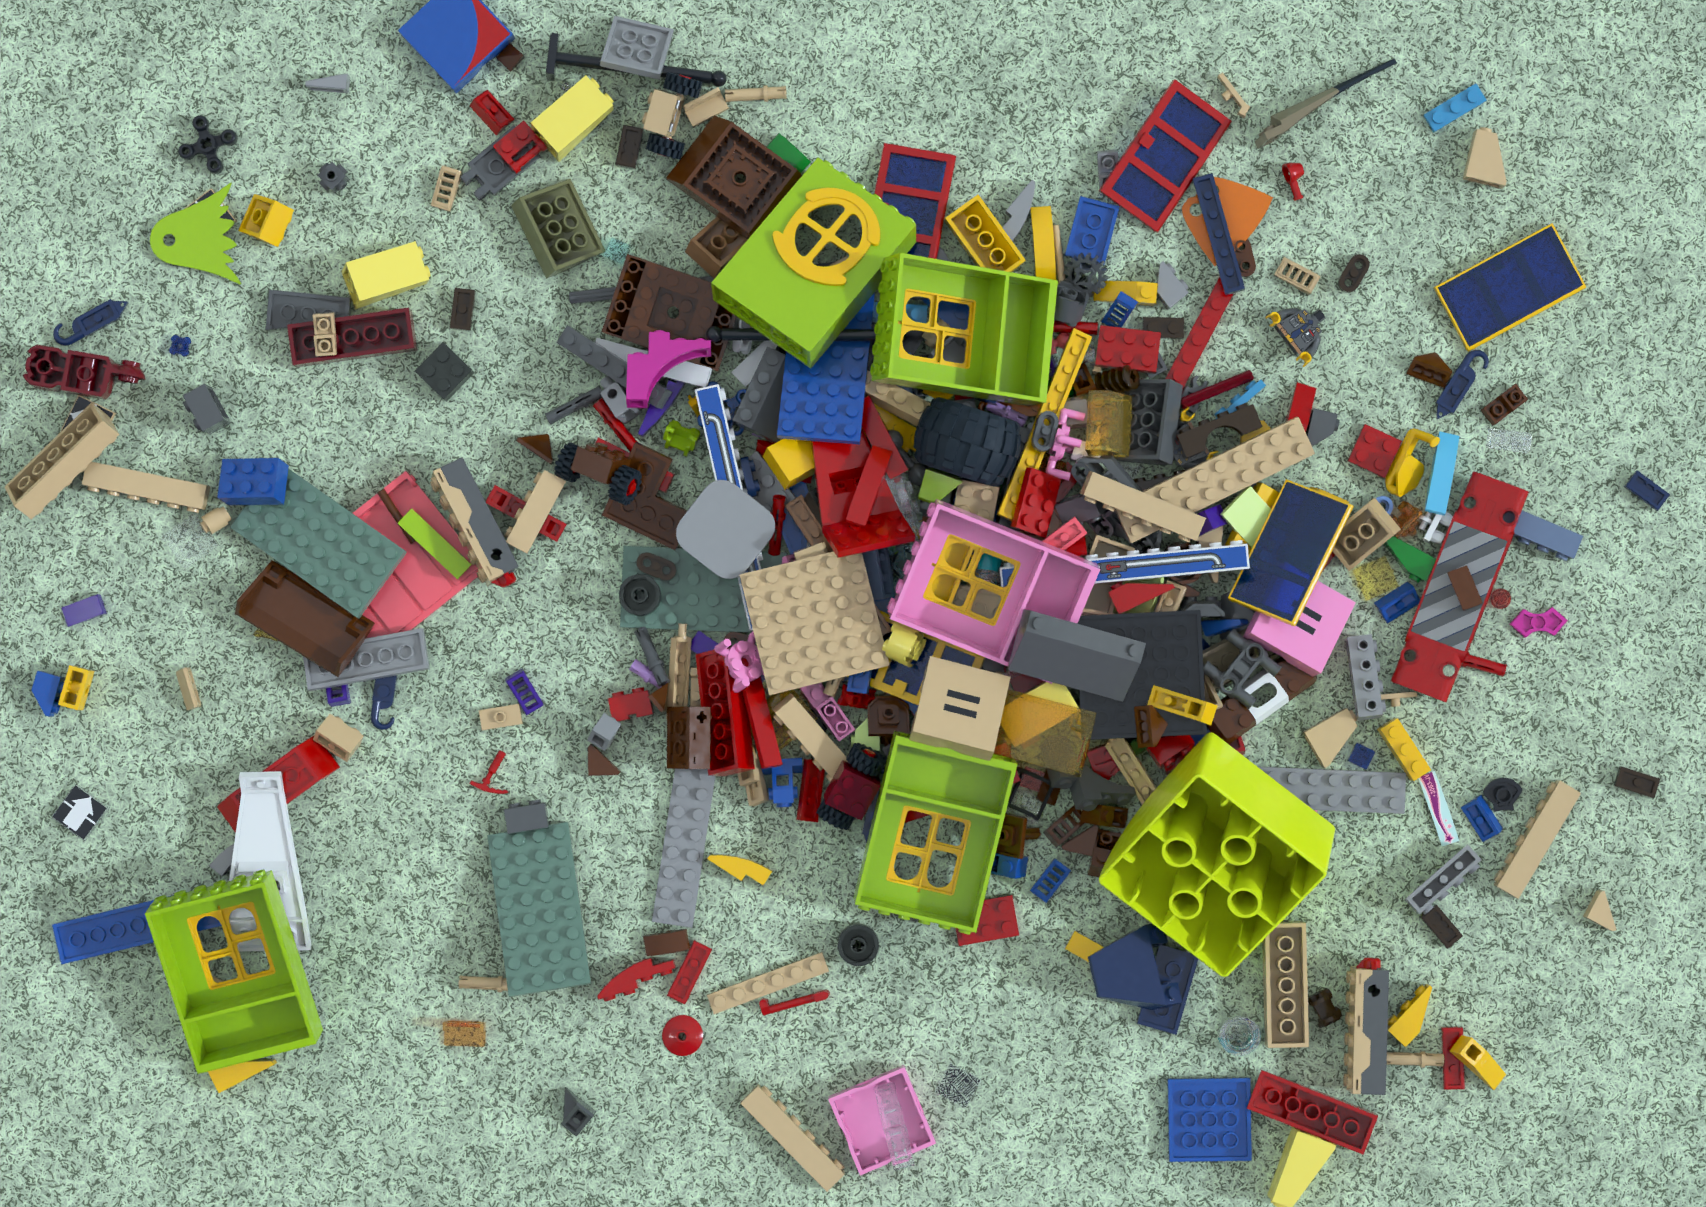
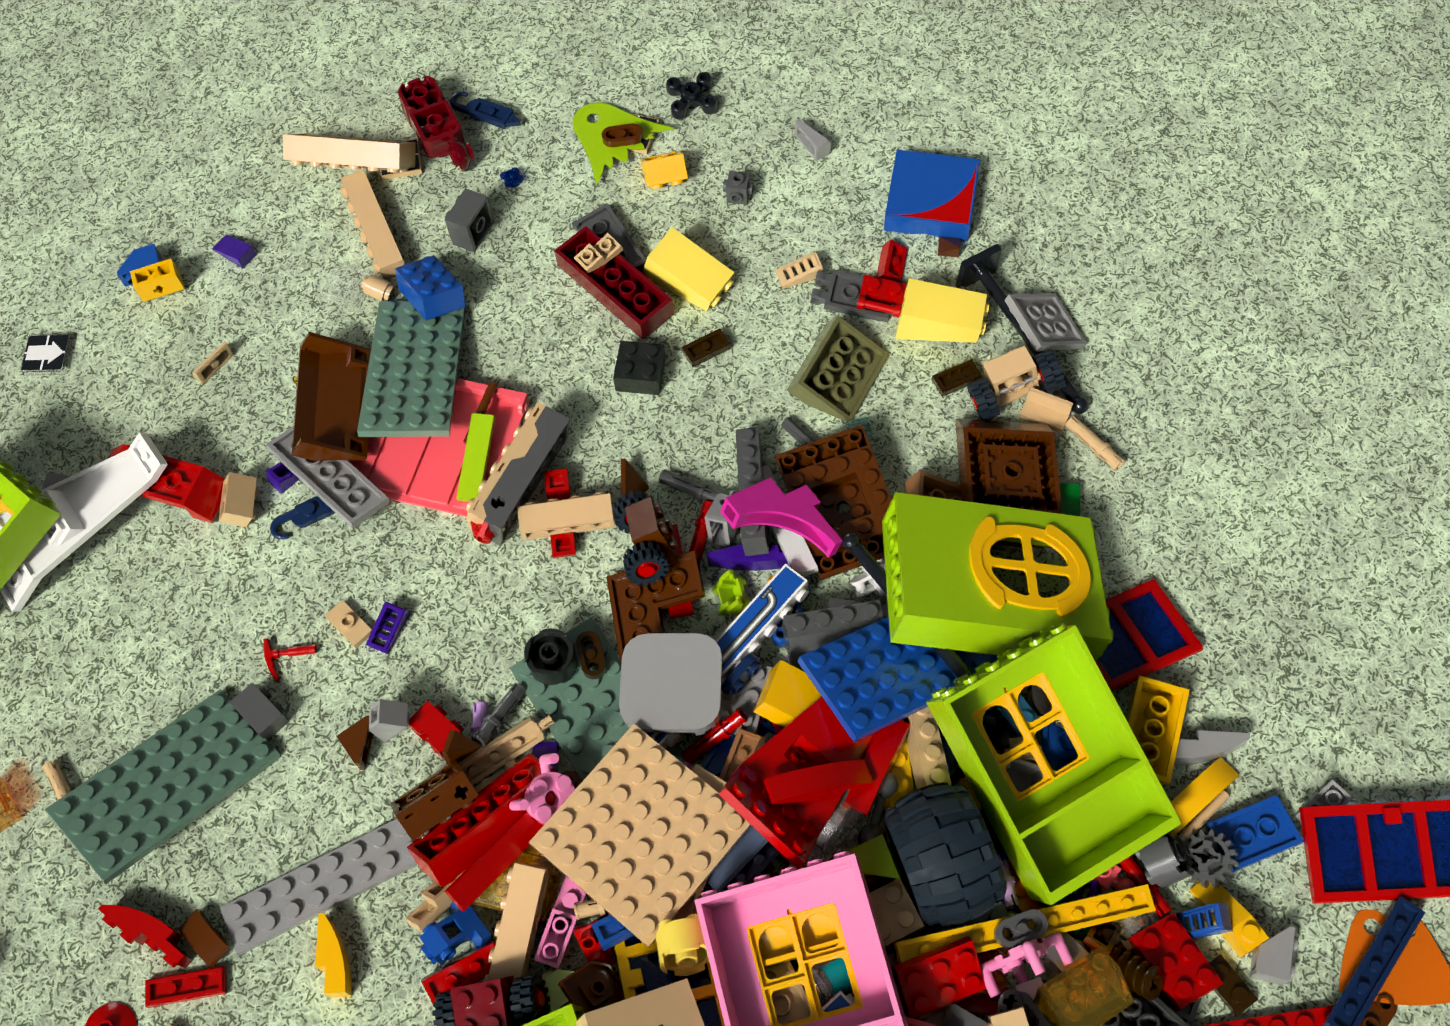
camera: 55 degrees right, 25 degrees down
(208, 230) = (622, 135): none -> reddish brown plate

